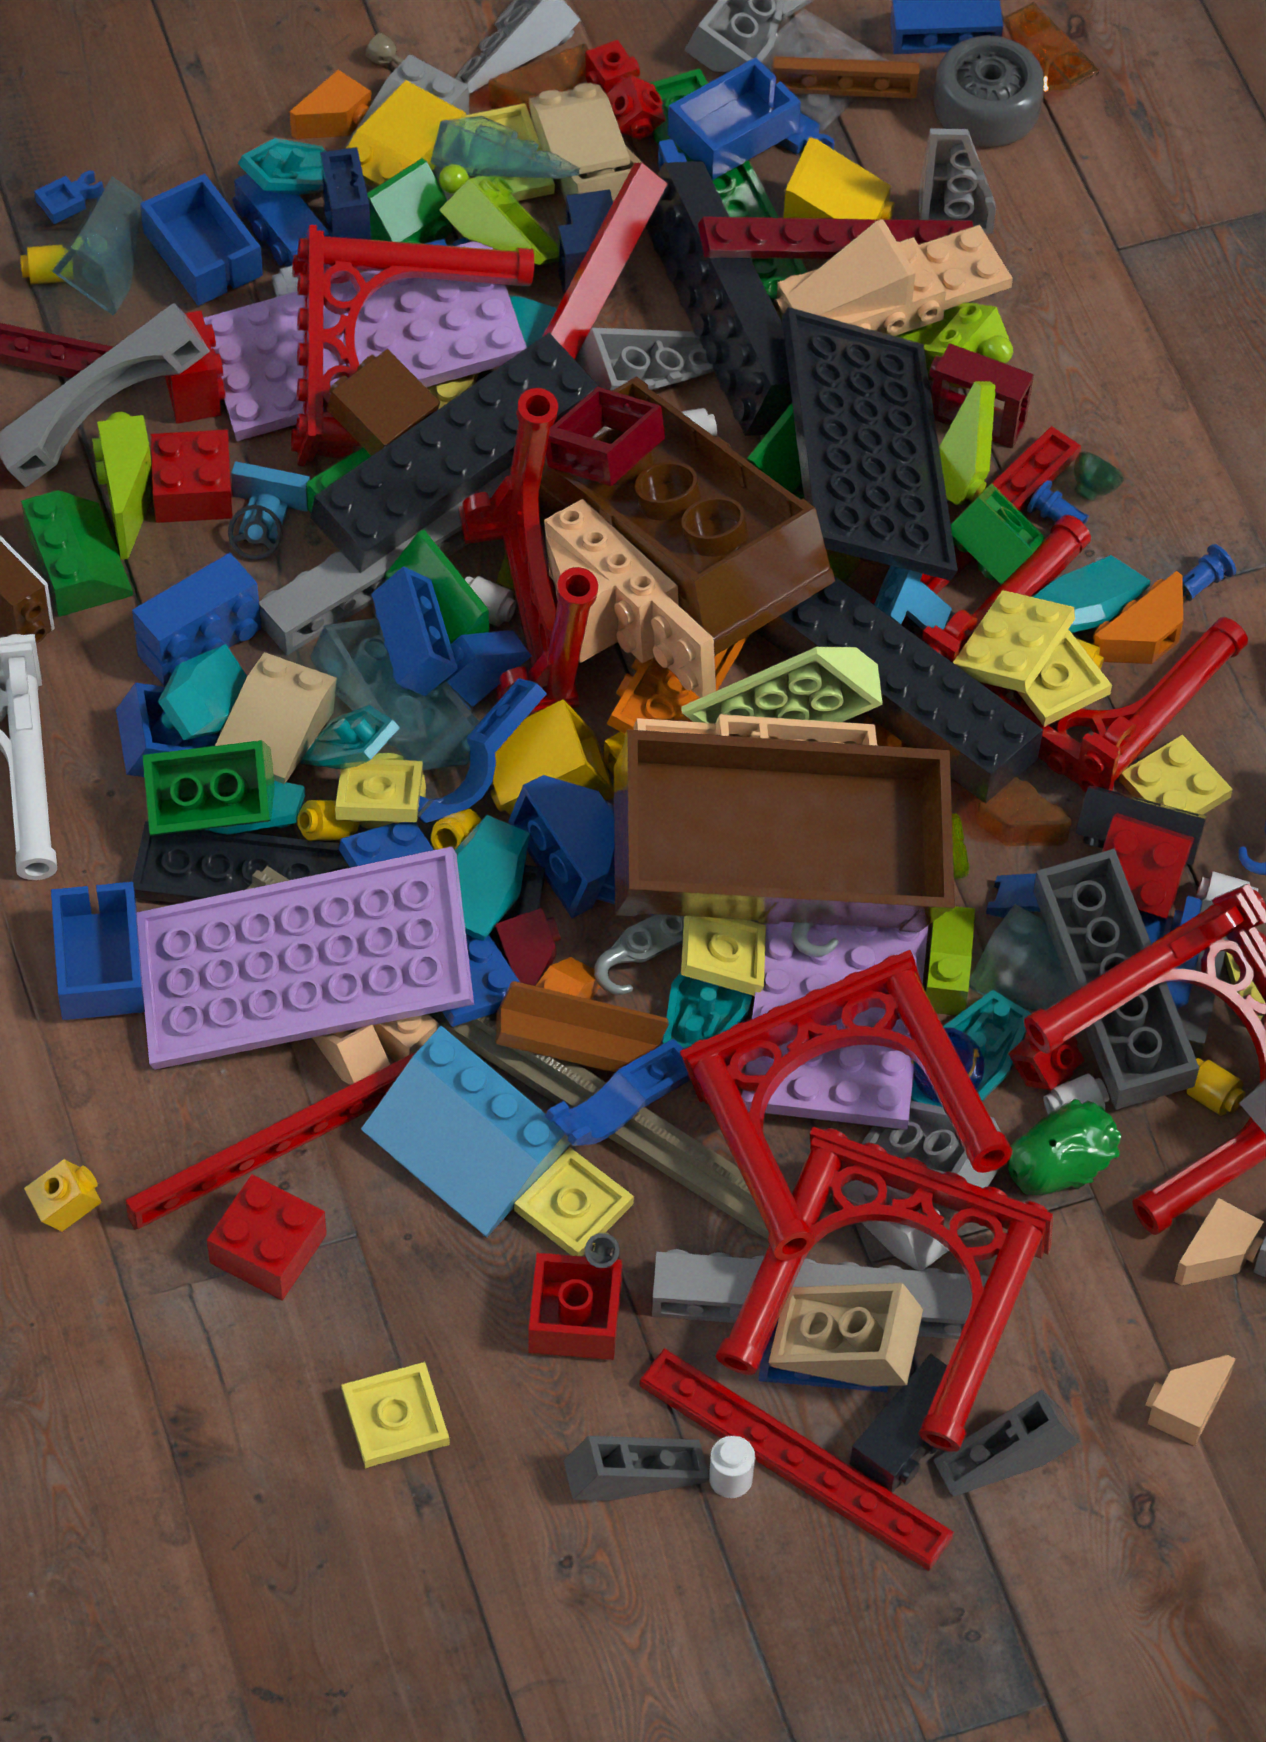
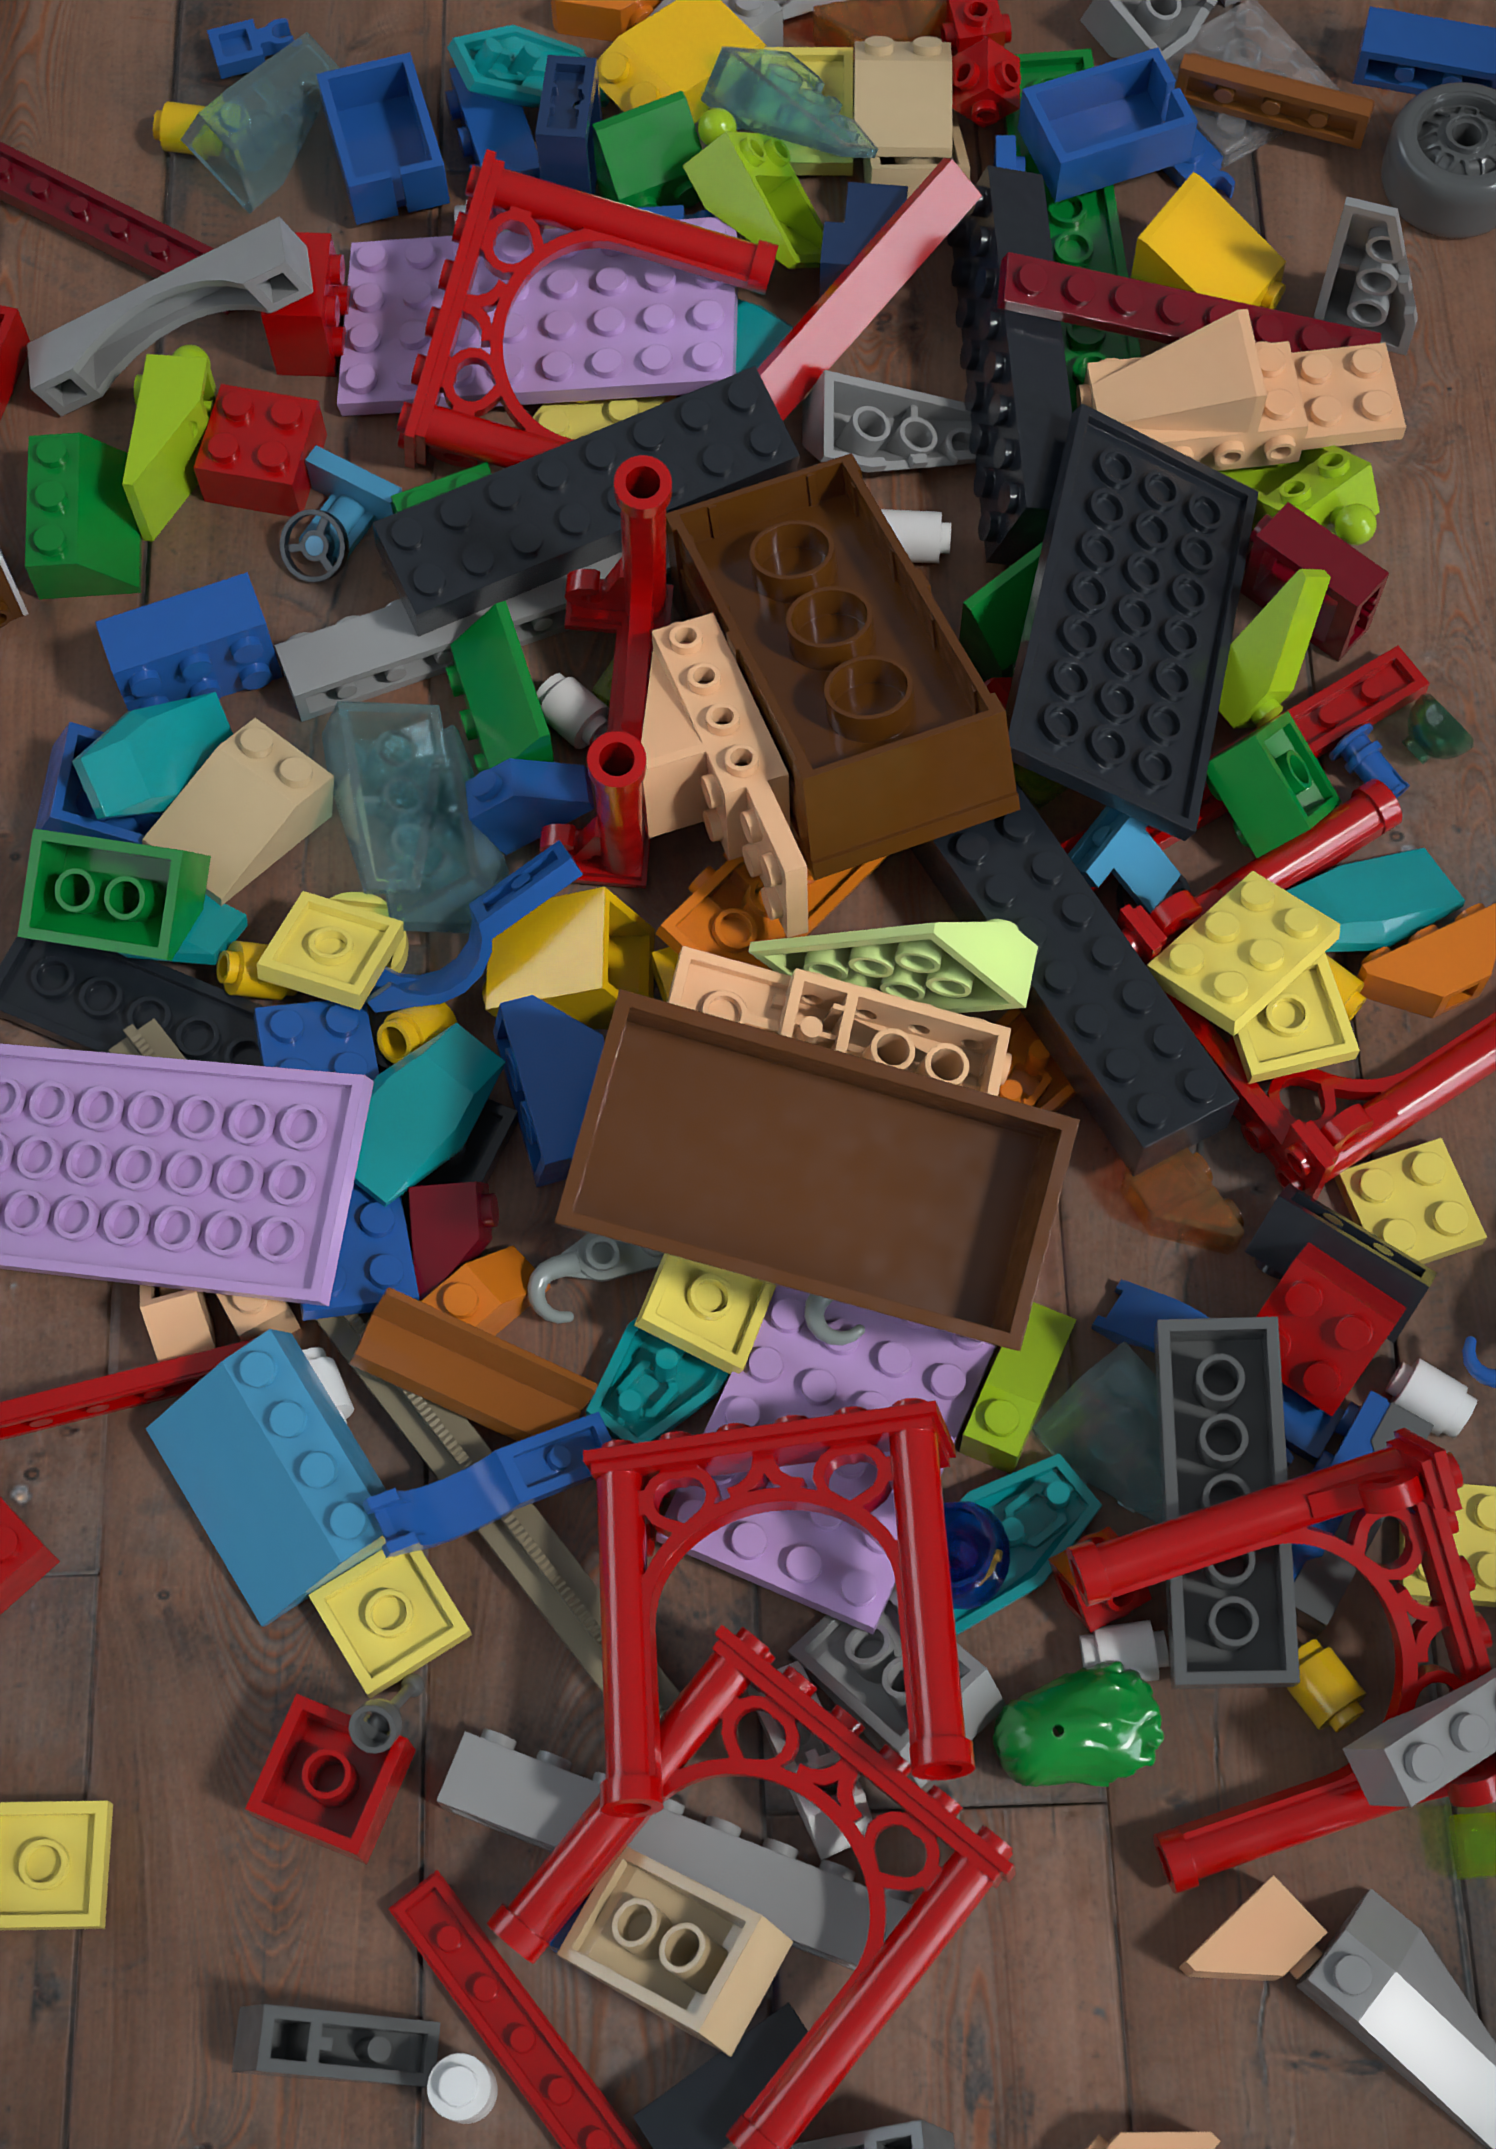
camera: 20 degrees right, 10 degrees up
(351, 739) = (315, 870): teal piece -> none
(380, 401) = (505, 410): reddish brown brick -> none
(414, 631) = (447, 739): blue brick -> none
(577, 453) = (718, 525): dark red window -> none
(960, 857) = (1075, 1226): clear neon green piece -> none

